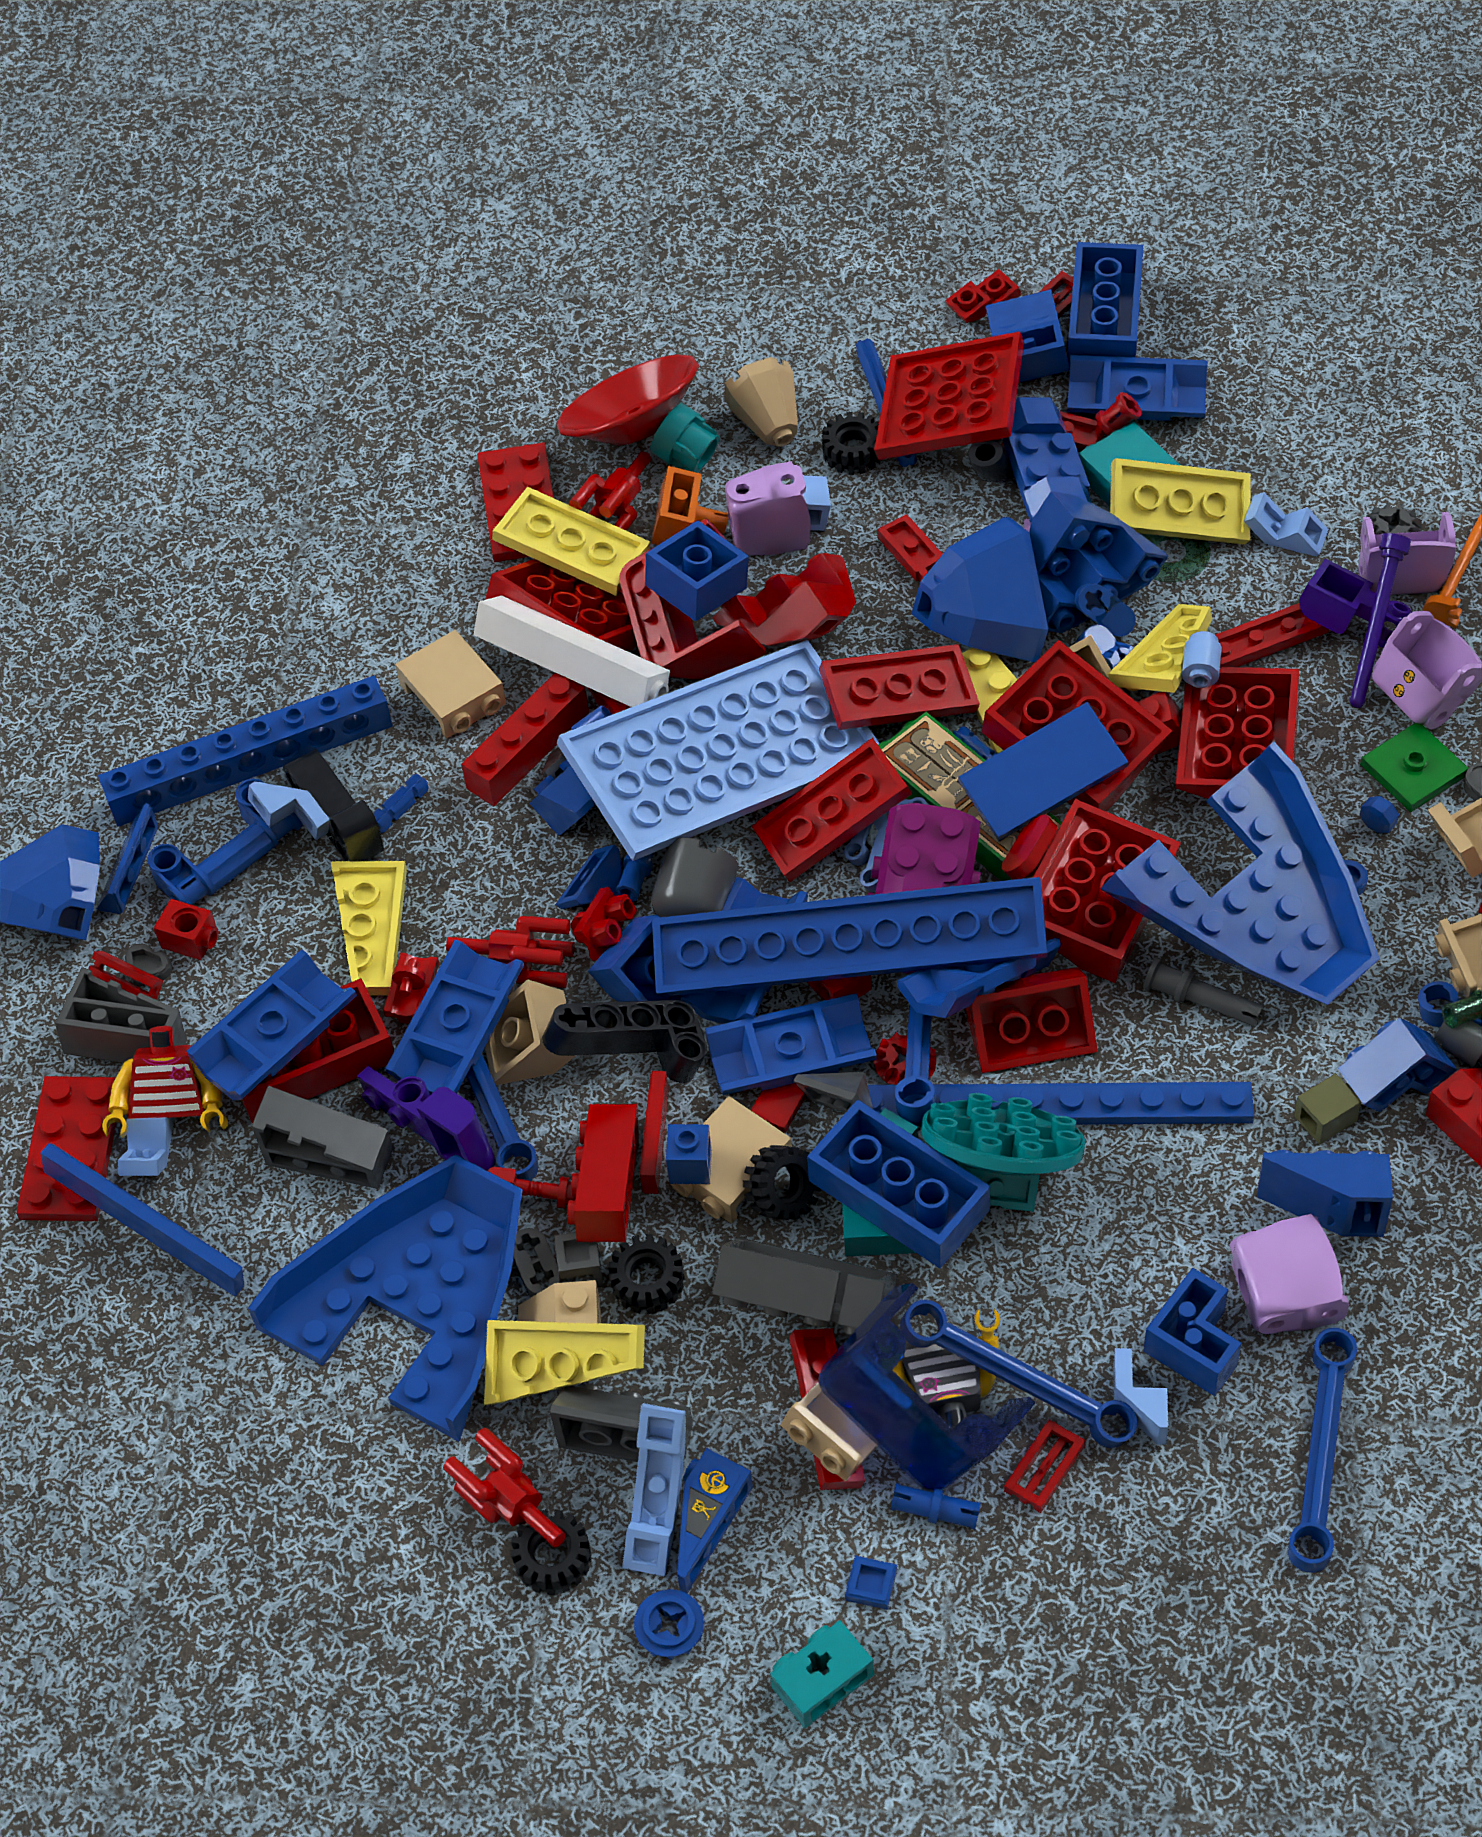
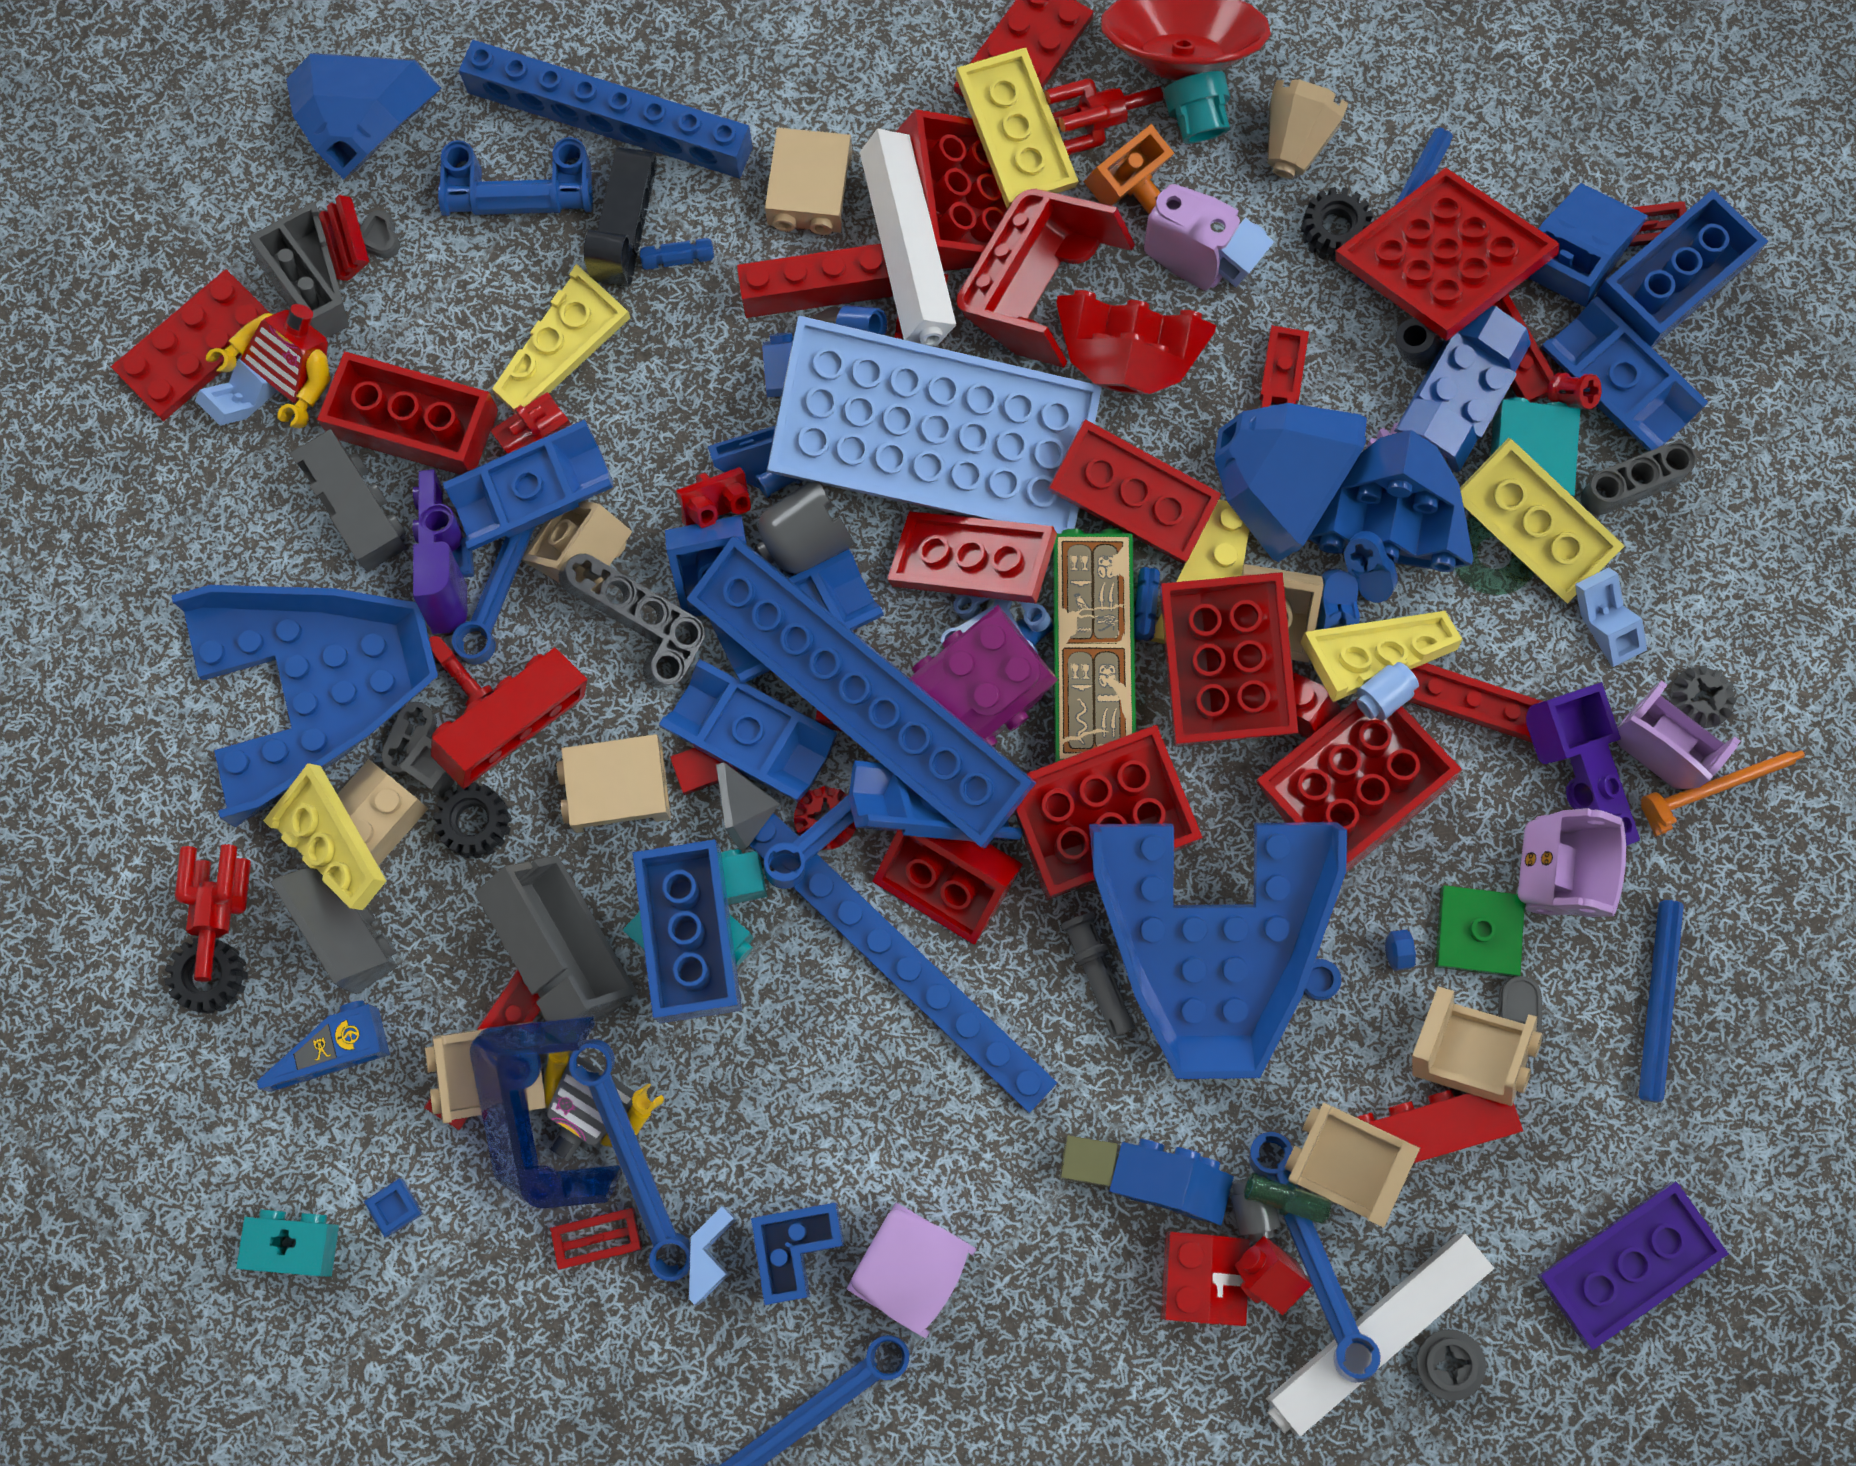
camera: 40 degrees right, 20 degrees up
(129, 862) = (450, 129): blue slope -> none
(143, 1219) = (175, 453): blue tile -> none
(176, 922) = (418, 220): red brick -> none
(269, 1027) = (381, 379): blue piece -> none
(278, 802) = (568, 182): light blue slope -> none
(521, 945) = (636, 467): red plant -> none
(654, 1132) = (586, 710): red tile -> none
(656, 1489) = (298, 1010): light blue slope -> none
(673, 1605) = (222, 1089): blue gear -> none
(689, 1153) = (569, 761): blue brick -> none
(696, 570) = (1064, 249): blue brick -> none
(763, 1178) = (617, 824): black tyre -> none
(935, 1506) = (488, 1196): blue pin -> none
(971, 300) = (1601, 172): red slope -> none
(1004, 1144) = (803, 965): teal bracket -> none
(1029, 847) = (1079, 733): red tile -> none
(1043, 771) = (1155, 677): blue tile -> none
(1214, 431) = (1649, 466): none -> dark grey beam
(1342, 1189) = (1016, 1247): blue slope -> none
(1393, 551) = (1647, 738): dark purple piece -> none

